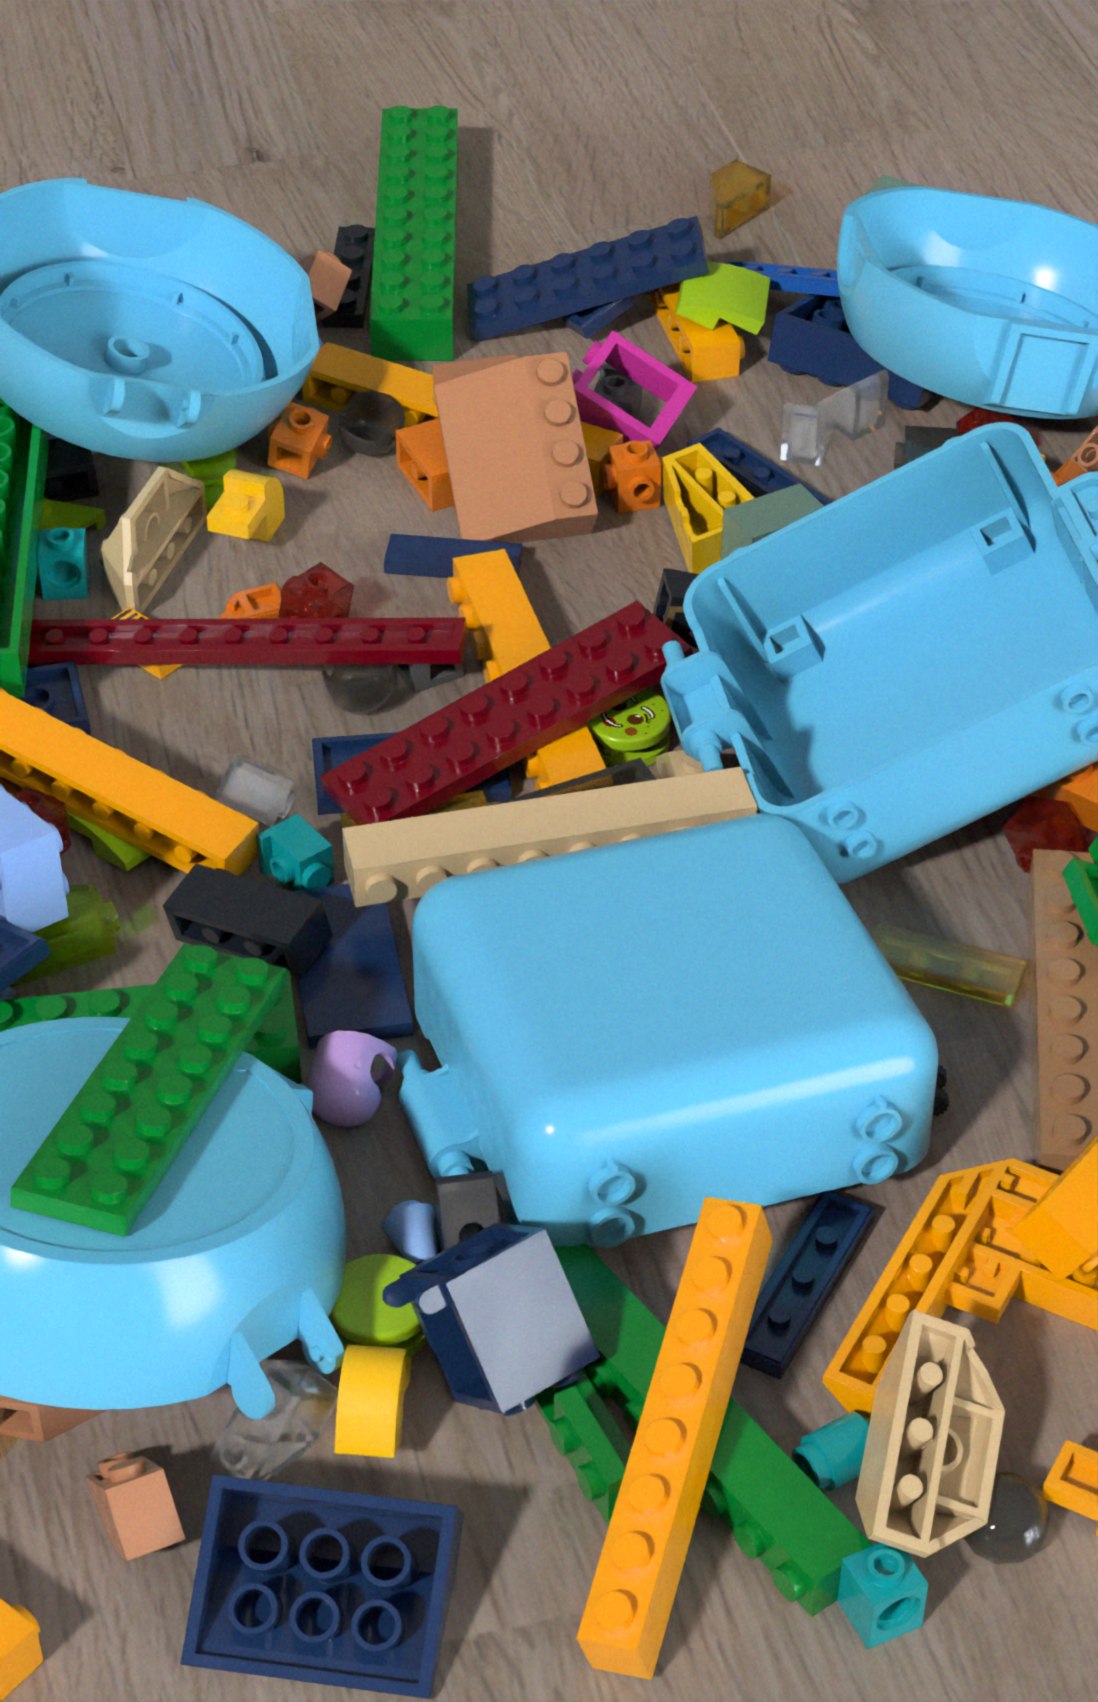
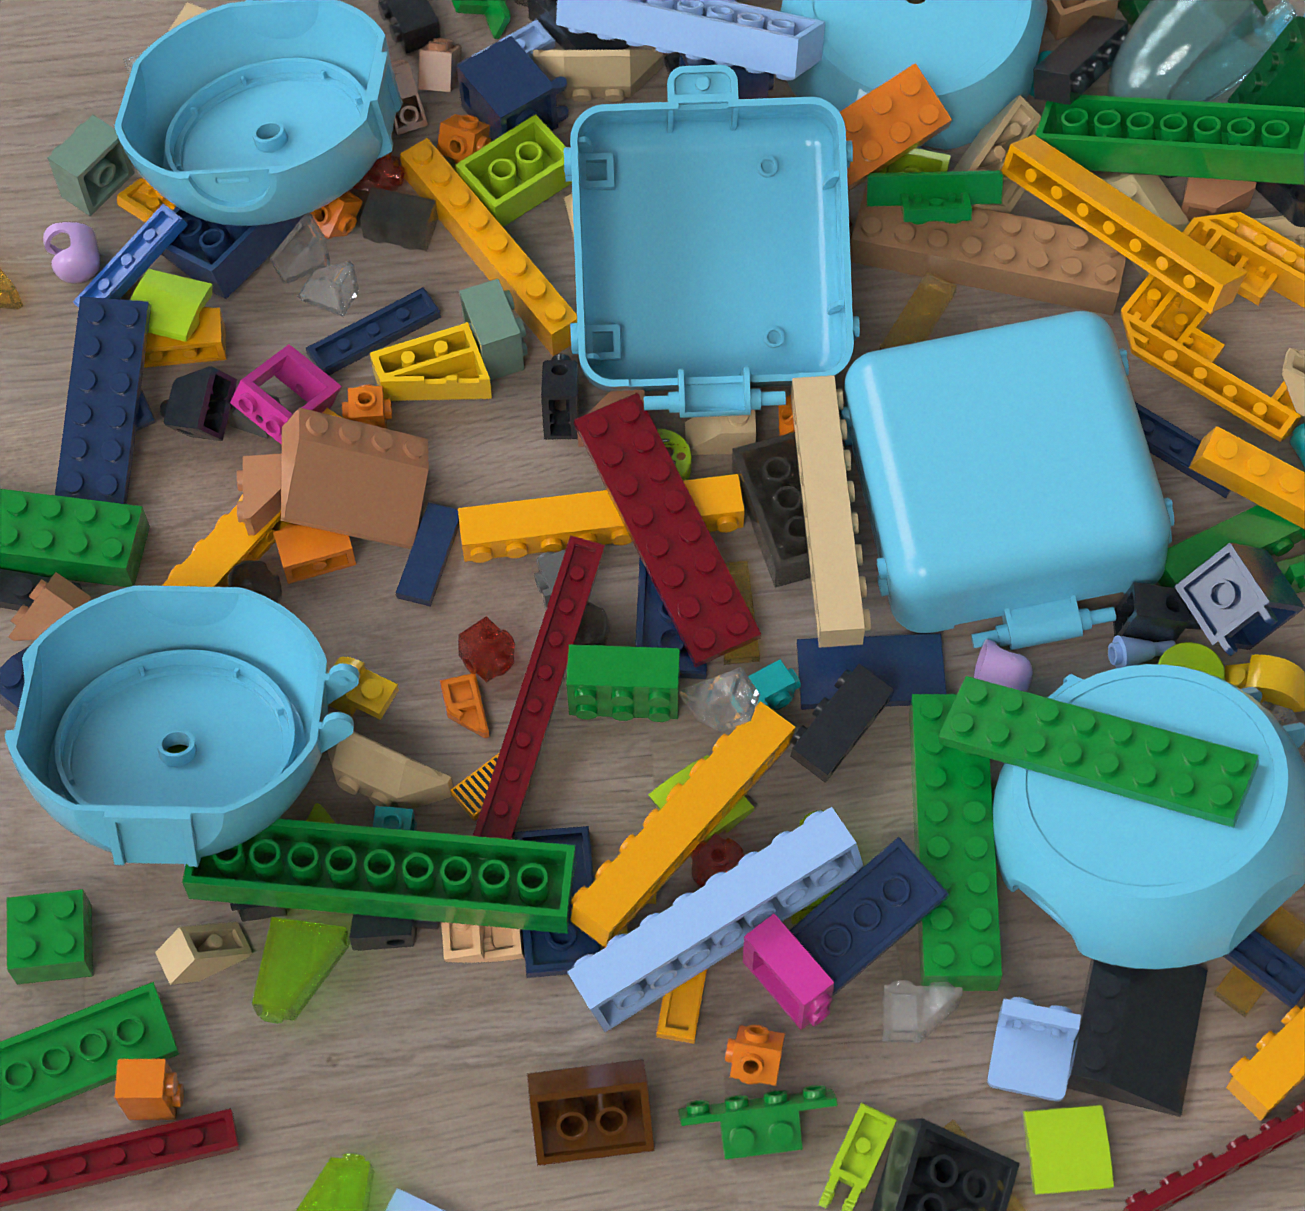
camera: 80 degrees left, 20 degrees up
(276, 702) = (623, 682): none -> green brick
(585, 333) = (200, 404): none -> black torso
(789, 242) = (81, 259): none -> lavender helmet
(912, 407) = (338, 216): none -> orange brick

